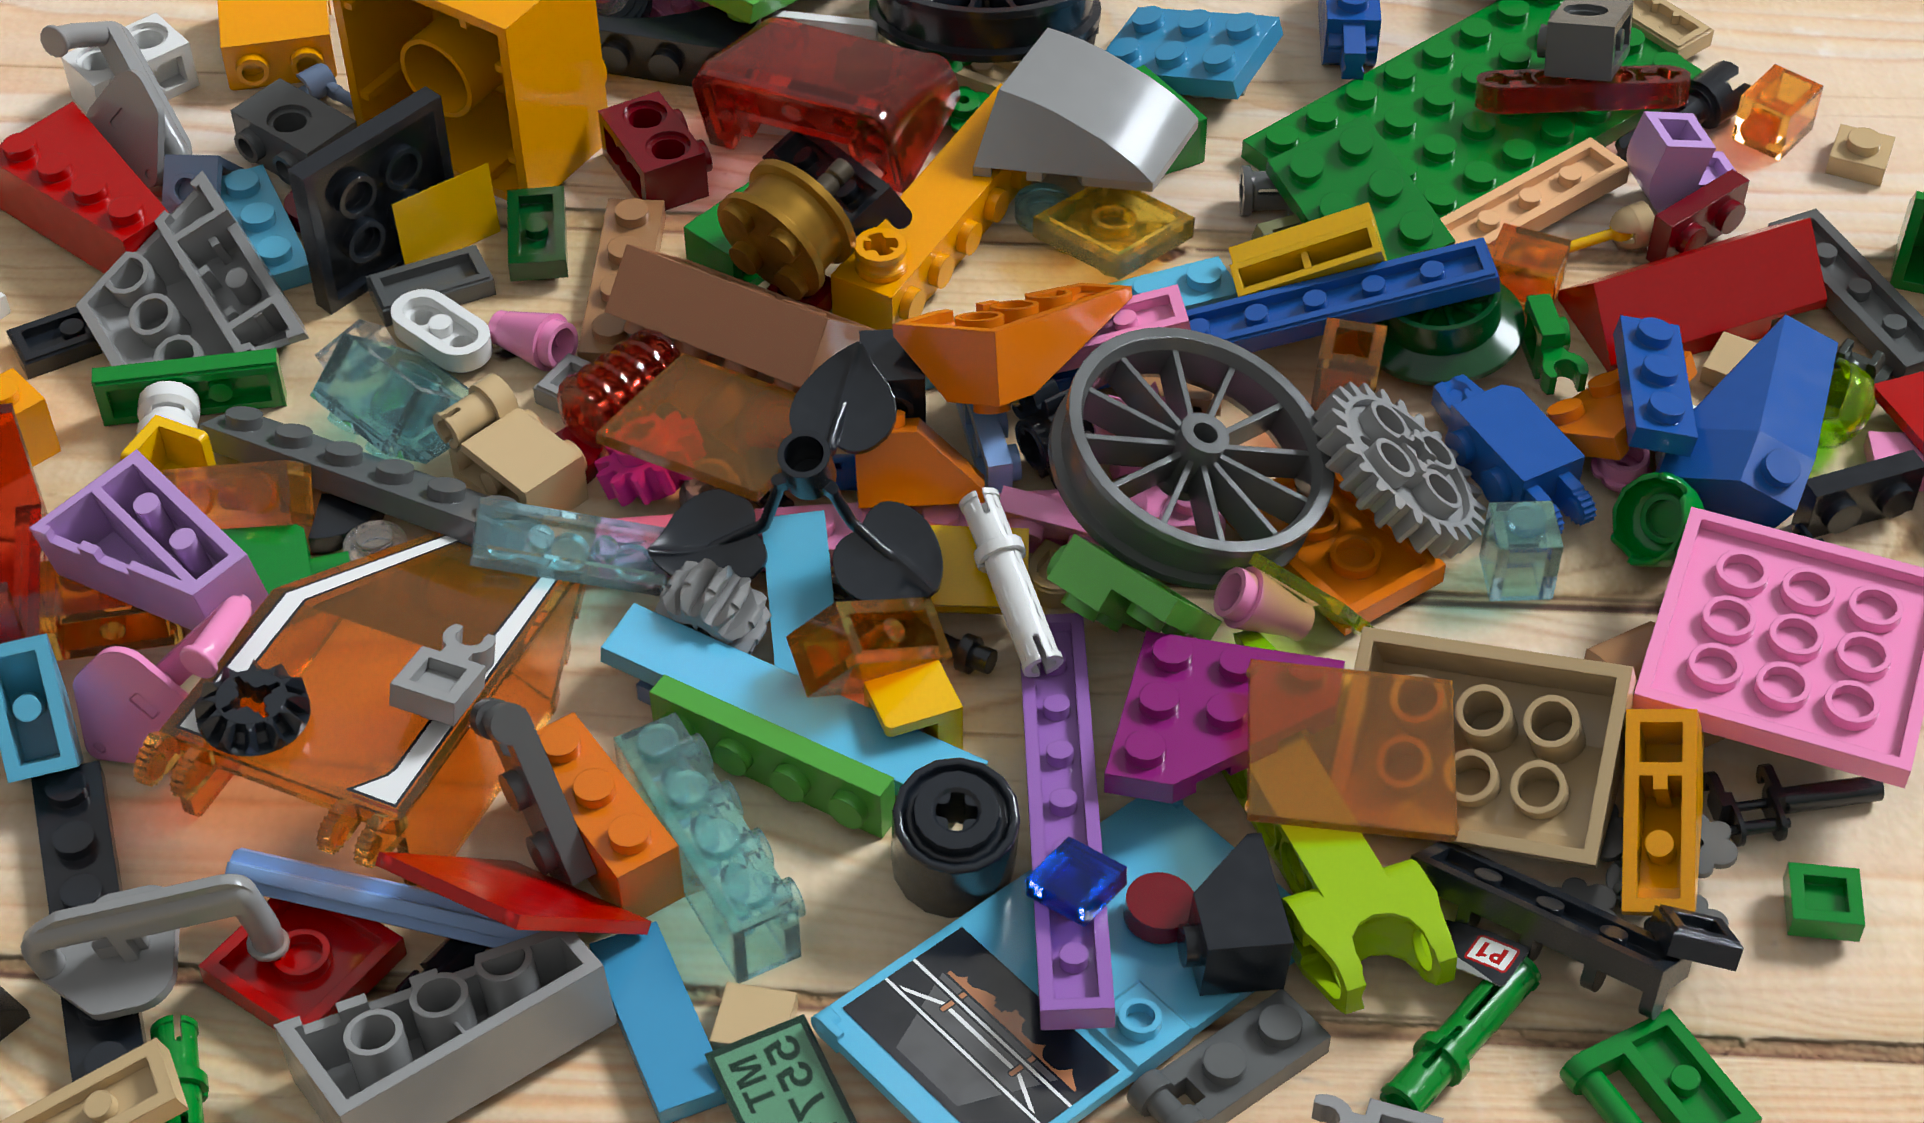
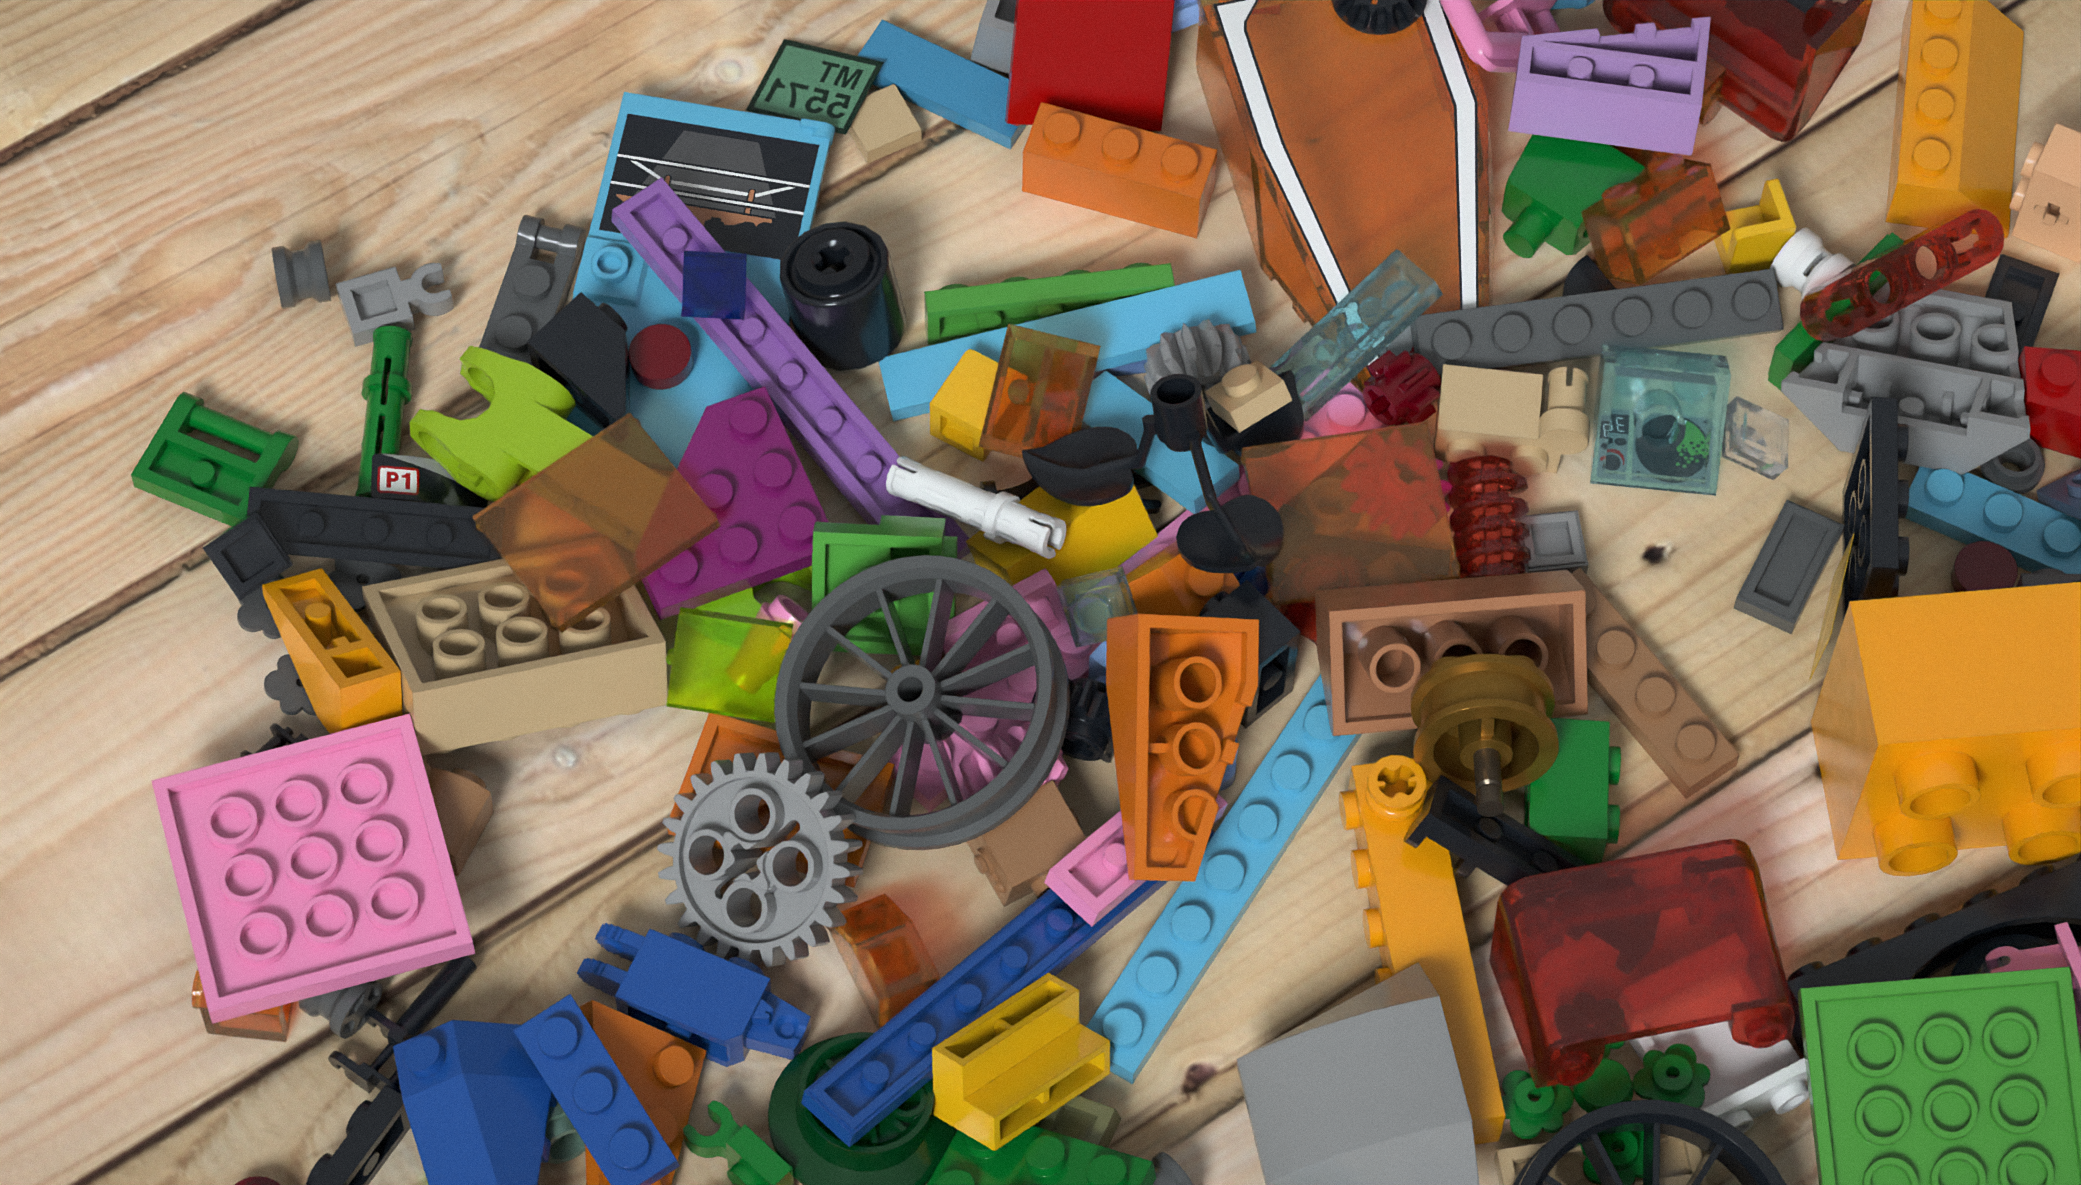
camera: 140 degrees right, 15 degrees up
(128, 346) = (1901, 271): none -> clear red beam
(372, 537) = (1531, 280): clear plate -> none
(441, 330) = (1713, 509): white plate -> none
(443, 681) = (1269, 83): light grey plate -> none
(533, 789) = (1166, 104): dark grey plate -> none
(534, 336) = (1631, 556): bright pink cone -> none
(537, 233) = (1755, 670): dark green plate -> none
(574, 493) = (1401, 388): none -> dark red gear
(655, 151) = (1760, 816): dark red brick -> none
(708, 531) = (1248, 395): none -> tan plate
(723, 862) = (1023, 198): clear light blue brick -> none
(980, 463) = (1092, 600): none -> clear light blue plate
(1113, 229) = (1237, 1010): clear yellow plate -> none
(1521, 550) = (614, 878): clear light blue brick -> none
(1652, 518) = (504, 987): green hair -> none
(1823, 902) = (179, 701): green plate -> none

